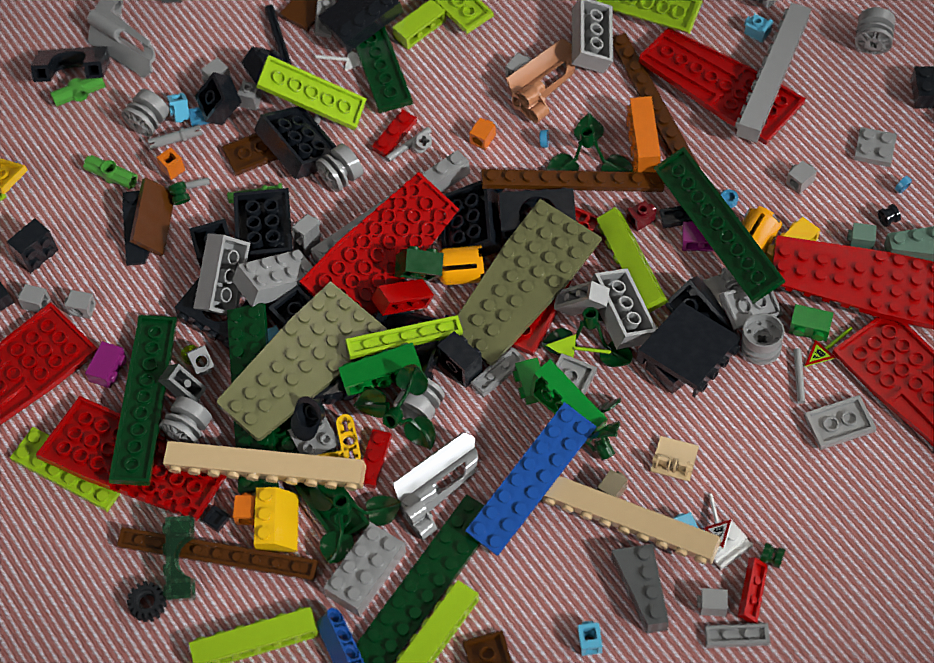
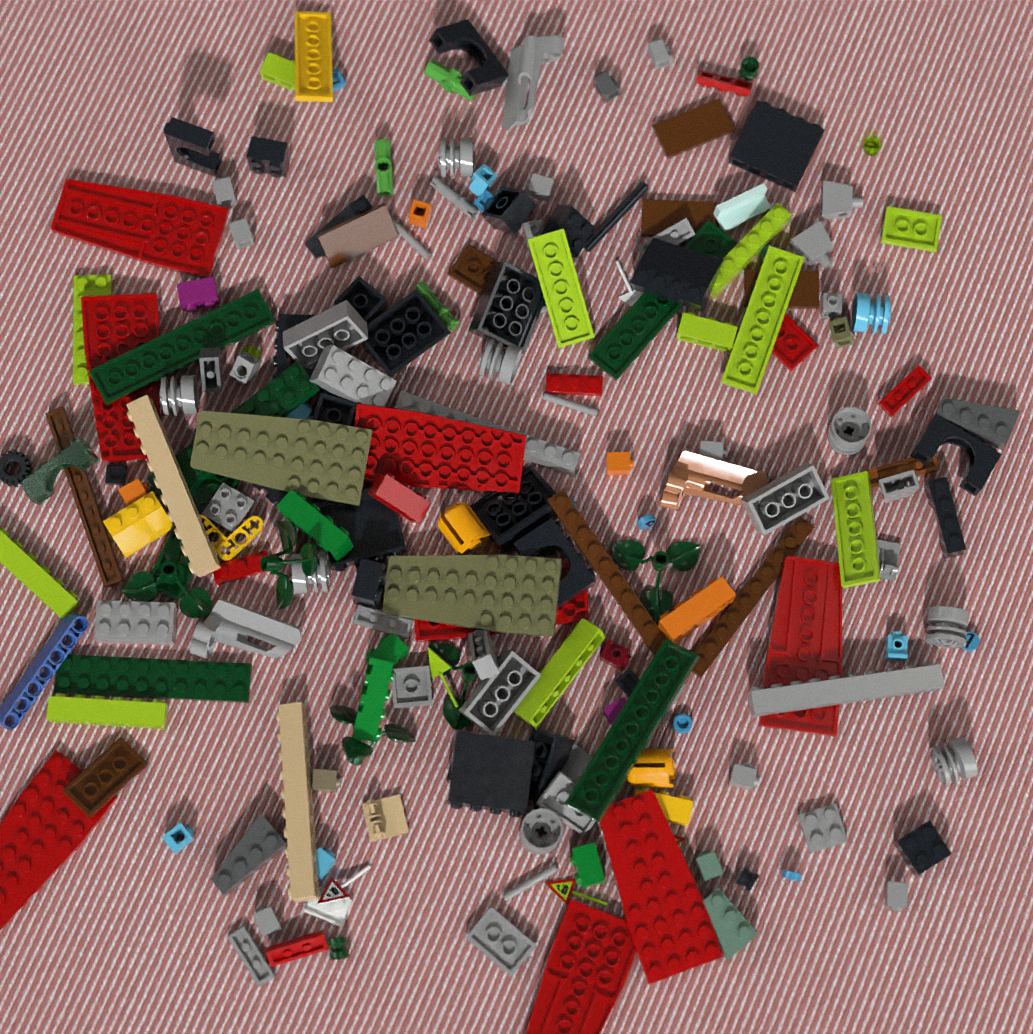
camera: 55 degrees right, 15 degrees up
(179, 193) = (396, 240): dark green wheel -> none
(306, 234) = (415, 378): light grey brick -> none
(307, 418) = (235, 493): black piece -> none
(390, 339) = (355, 525): lime plate -> none
(419, 264) = (436, 493): dark green brick -> none
(425, 139) = (574, 410): light grey bush -> none
(530, 479) = (284, 710): blue plate -> none

